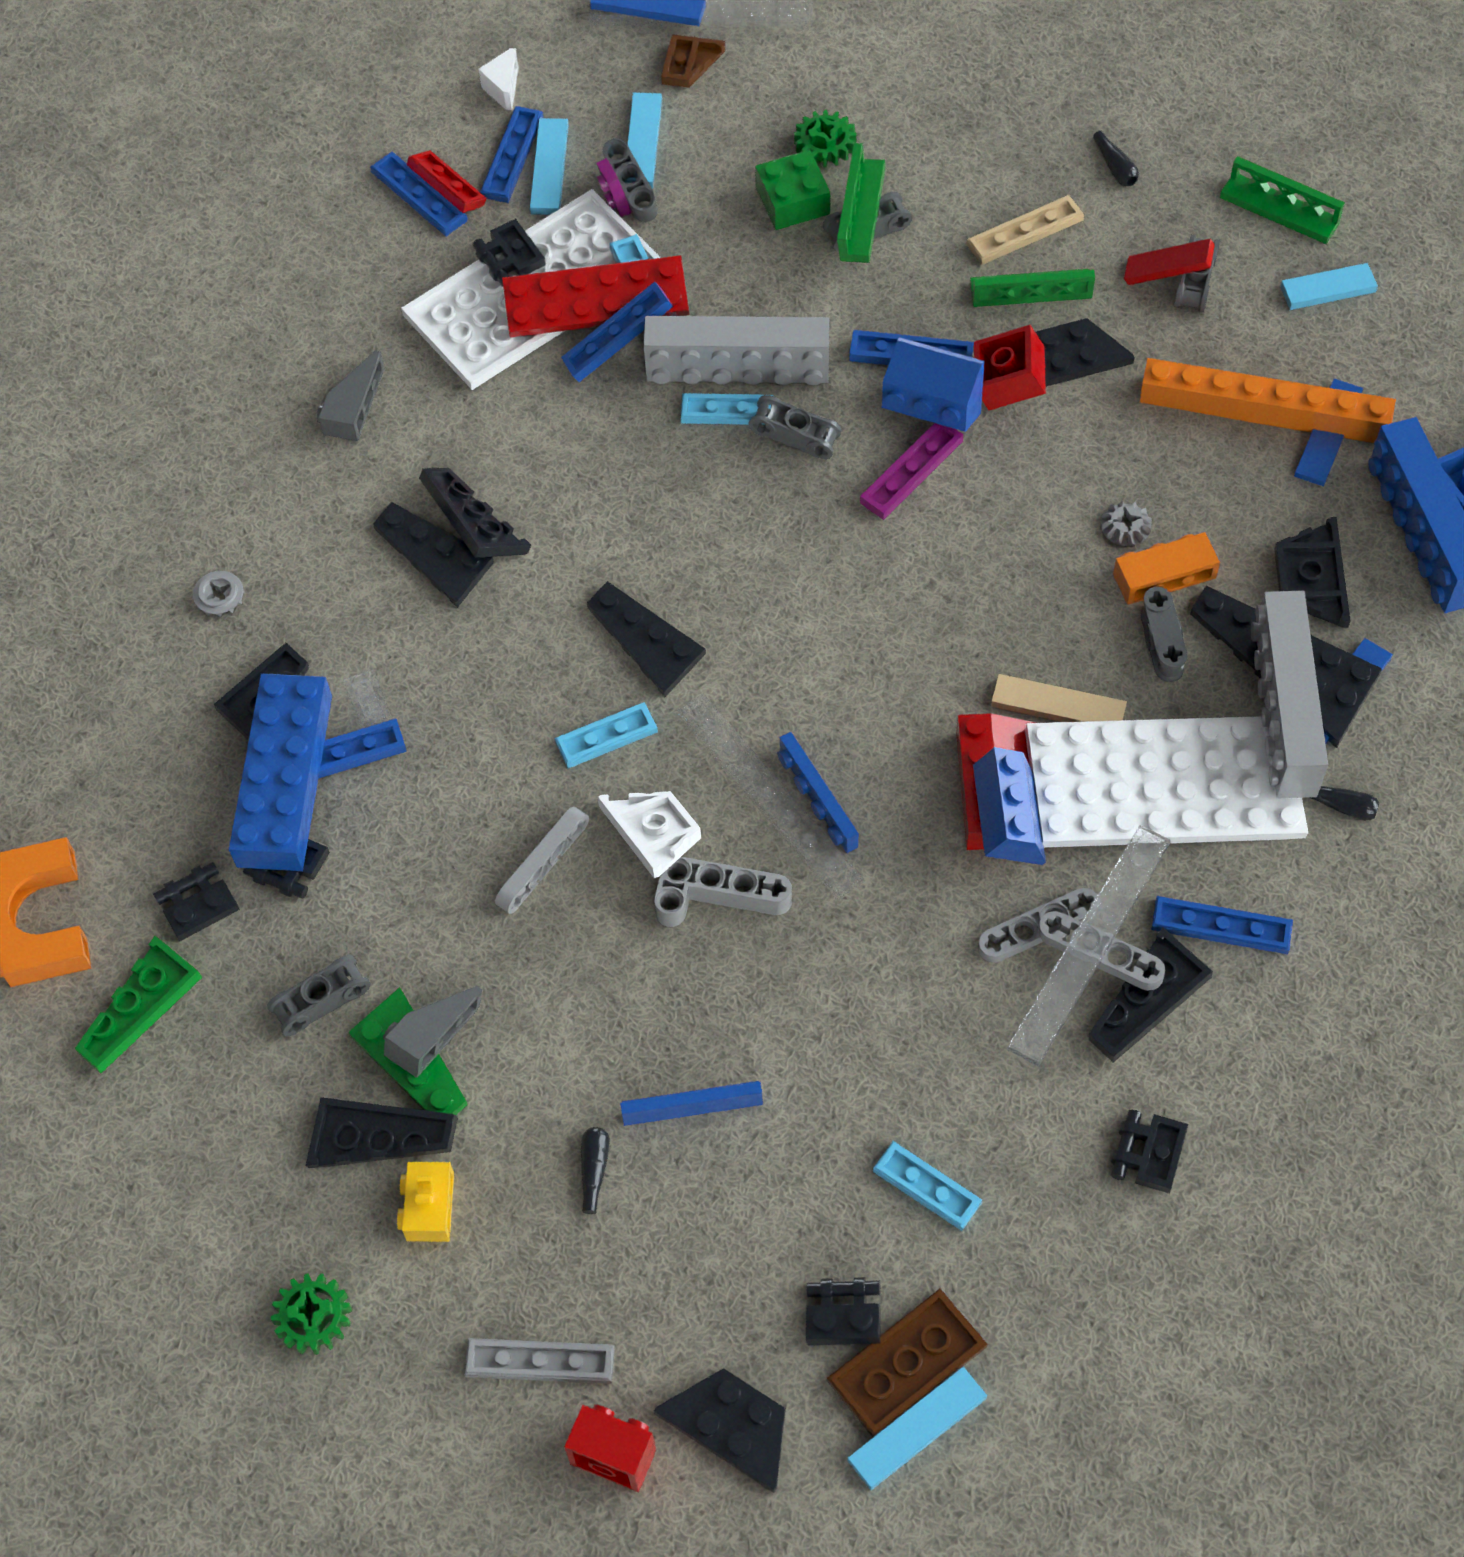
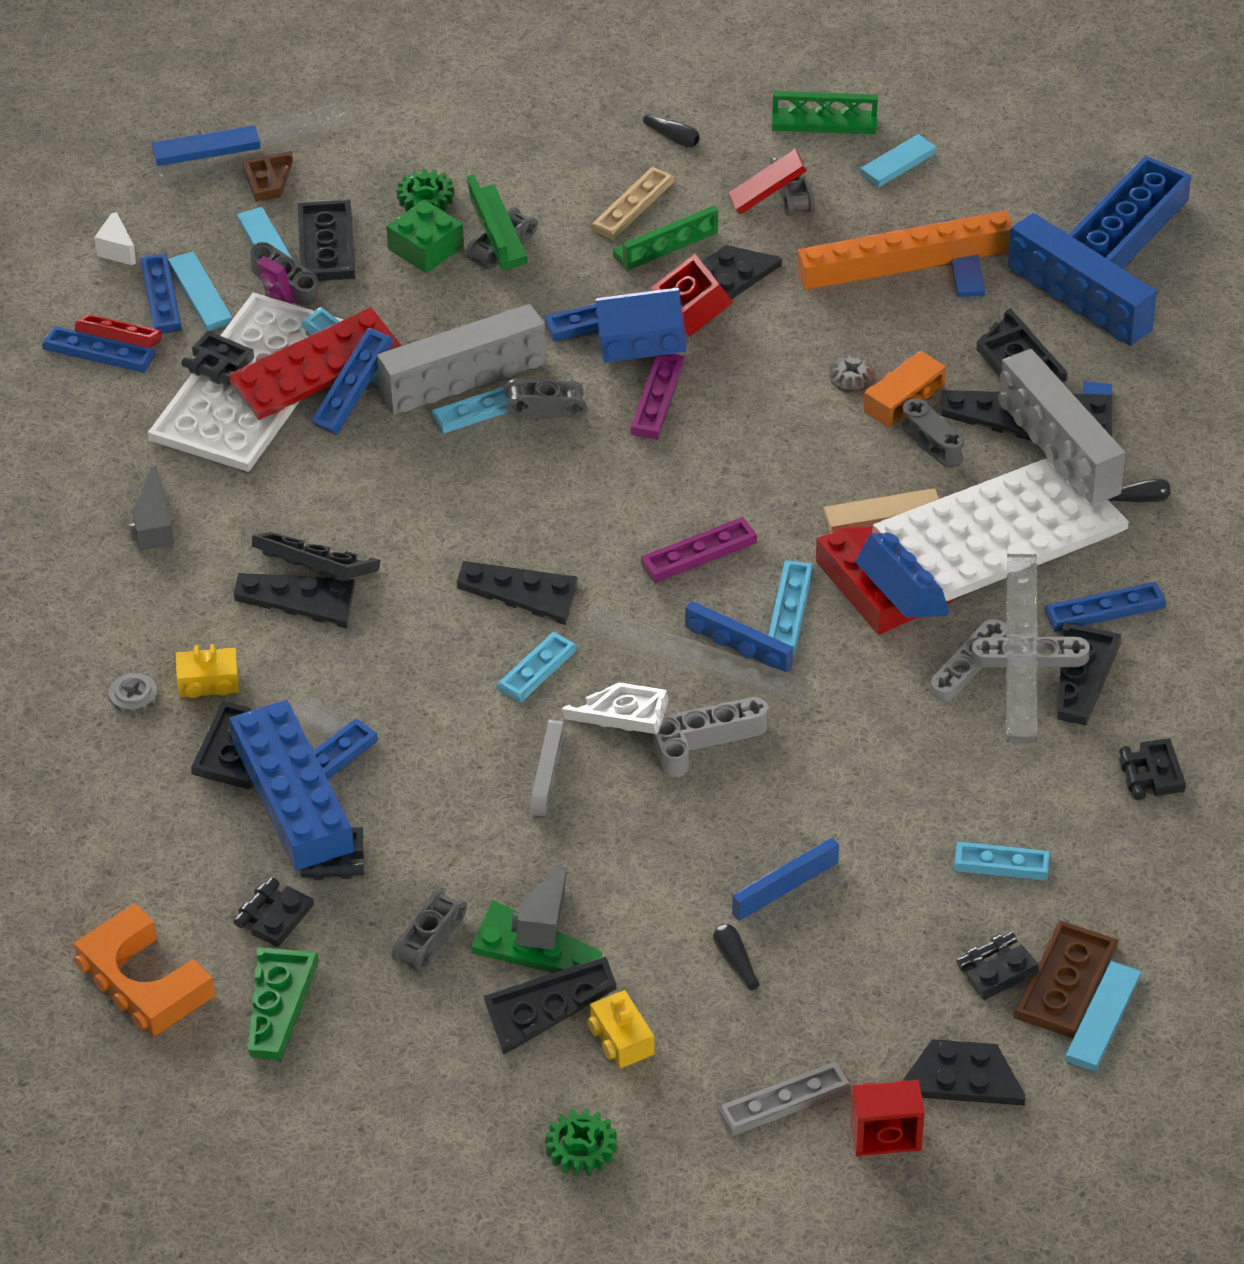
camera: 30 degrees left, 15 degrees down
(293, 604) = (207, 672): none -> yellow brick
(698, 156) = (326, 239): none -> black plate
(843, 669) = (698, 549): none -> magenta plate
(895, 777) = (791, 602): none -> medium azure tile

